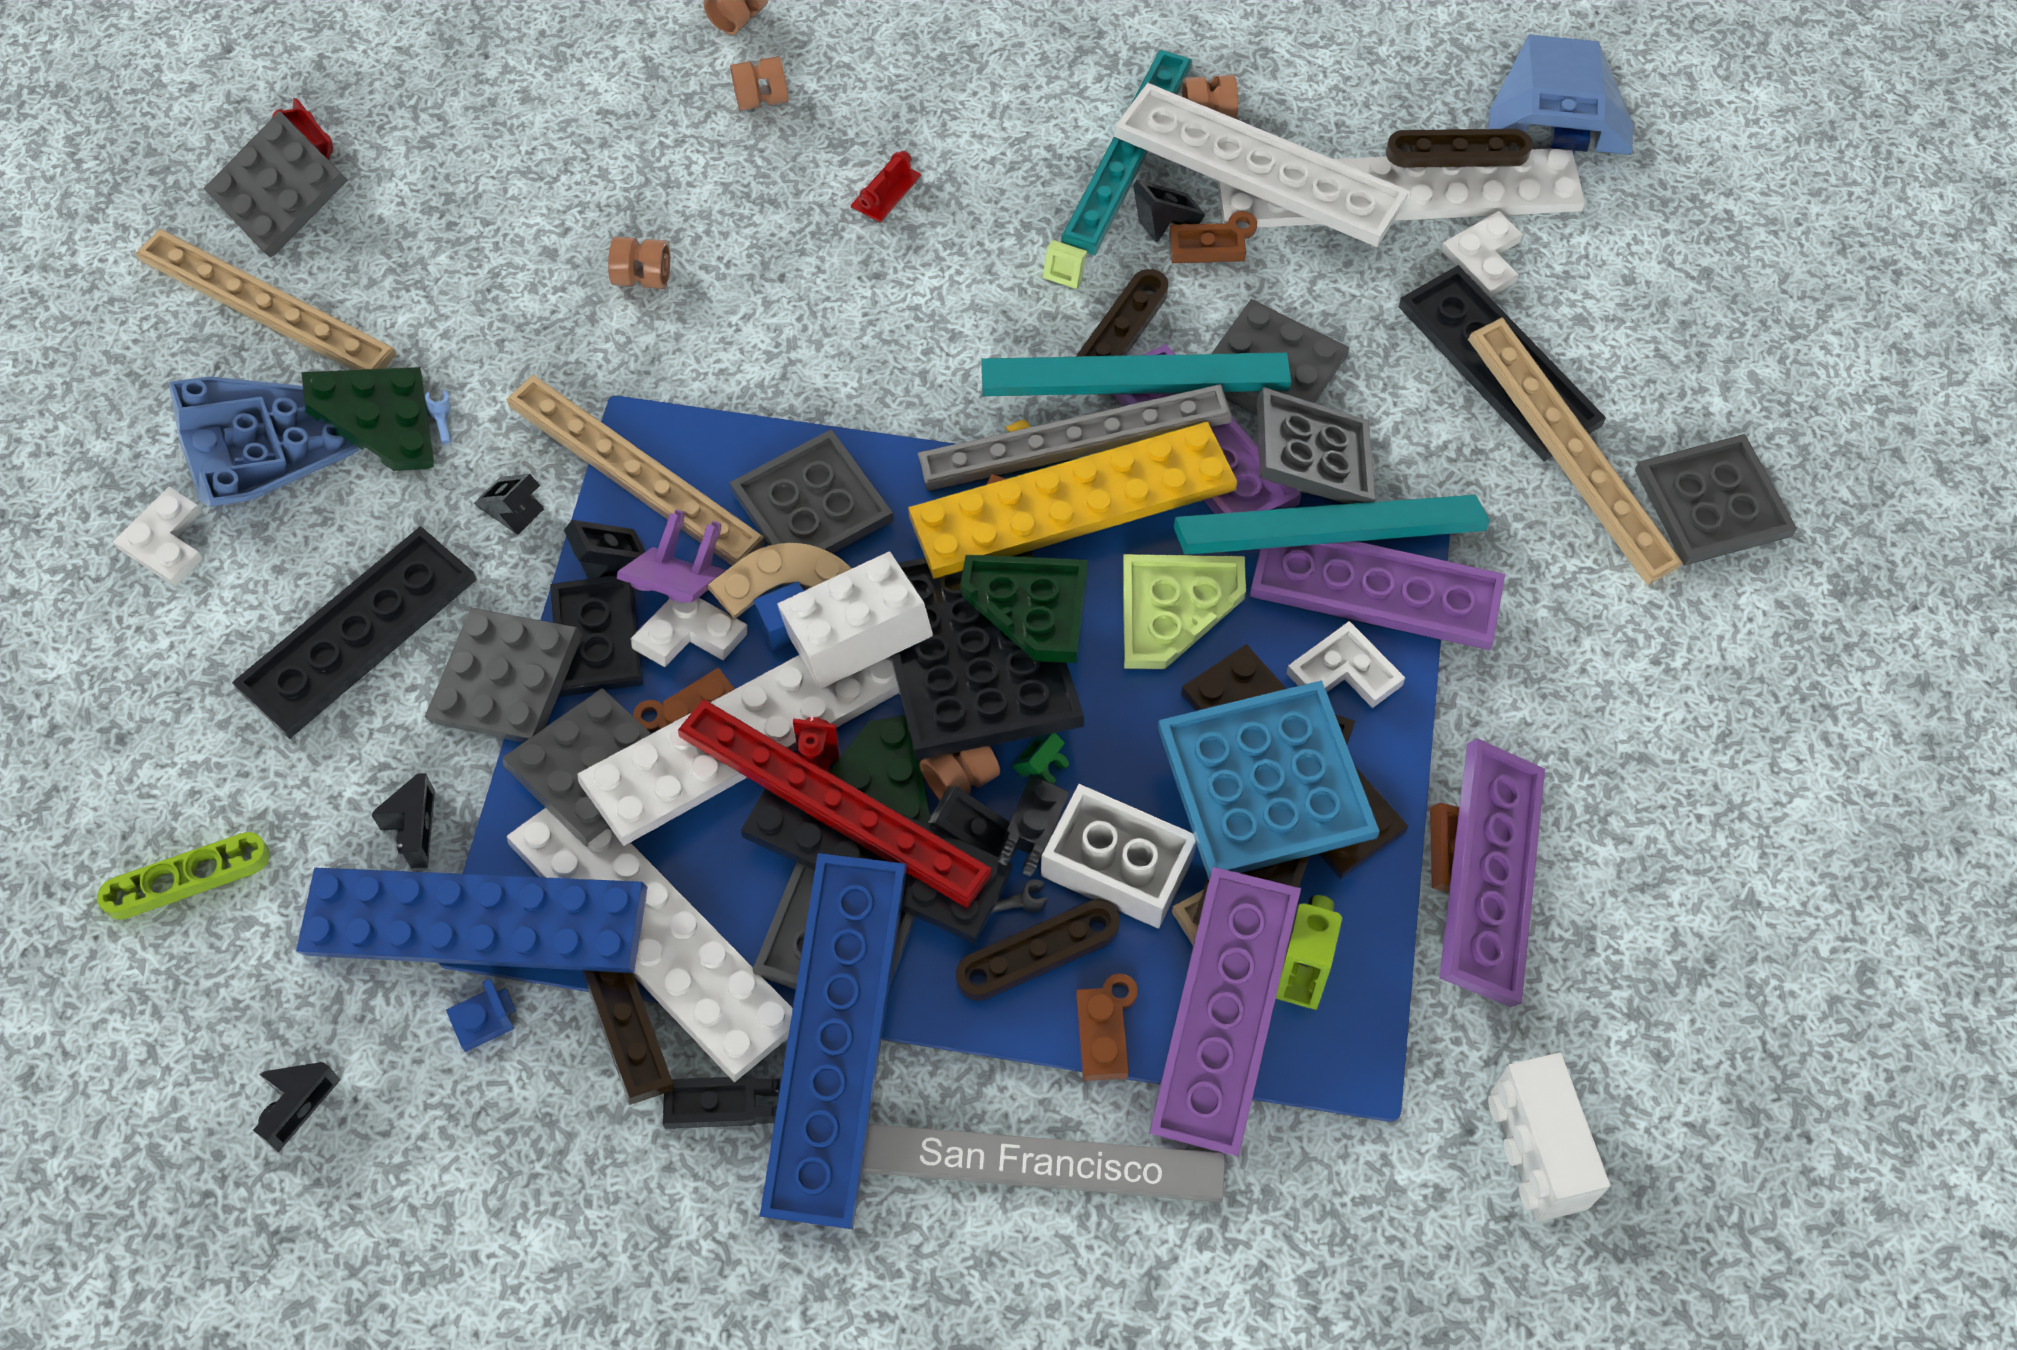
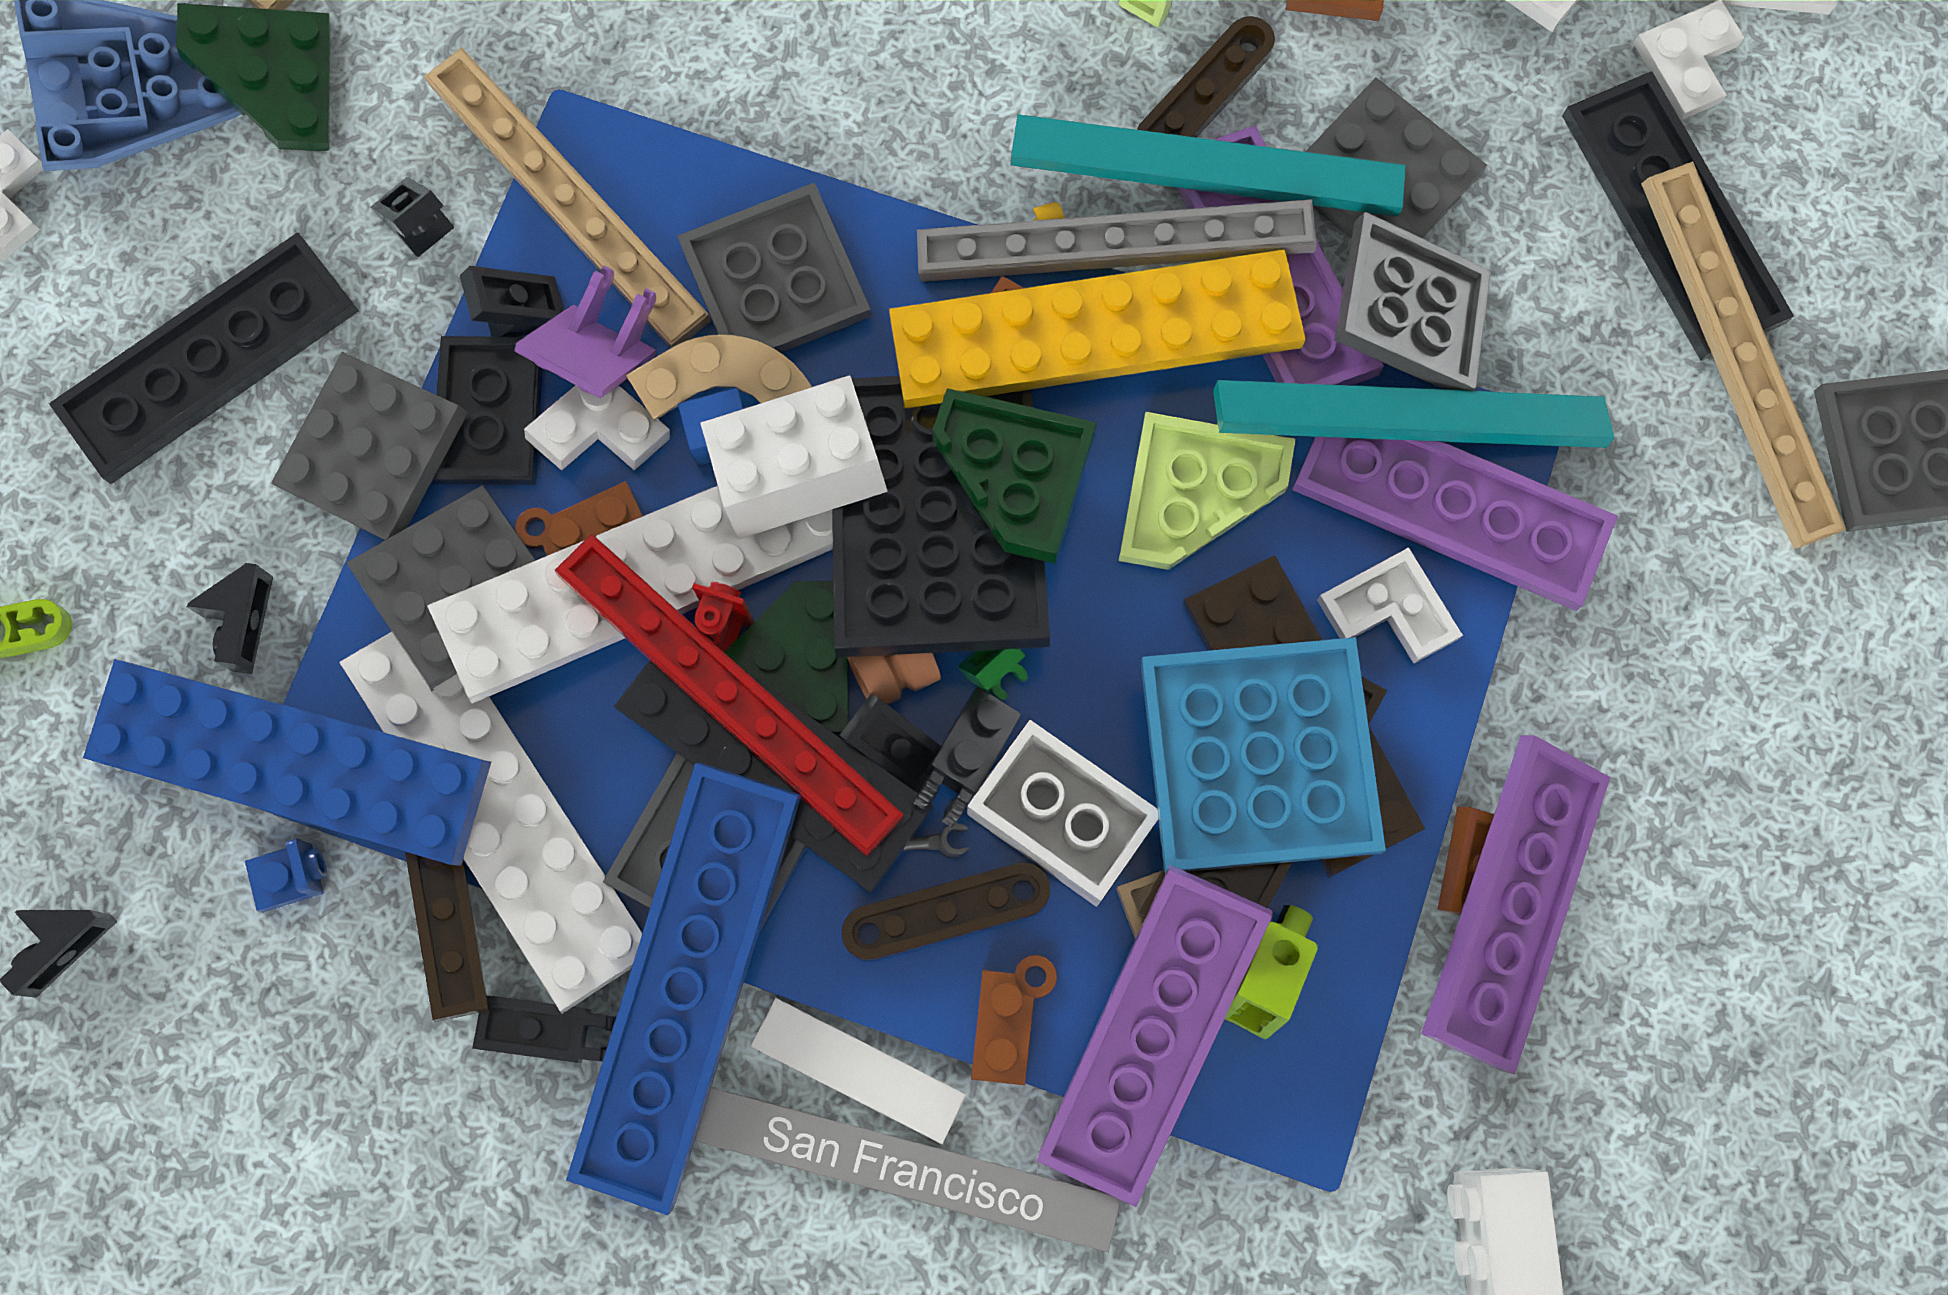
camera: 10 degrees right, 15 degrees up
(439, 412) = (345, 78): light blue hand -> none
(988, 1092) = (858, 1070): none -> white tile

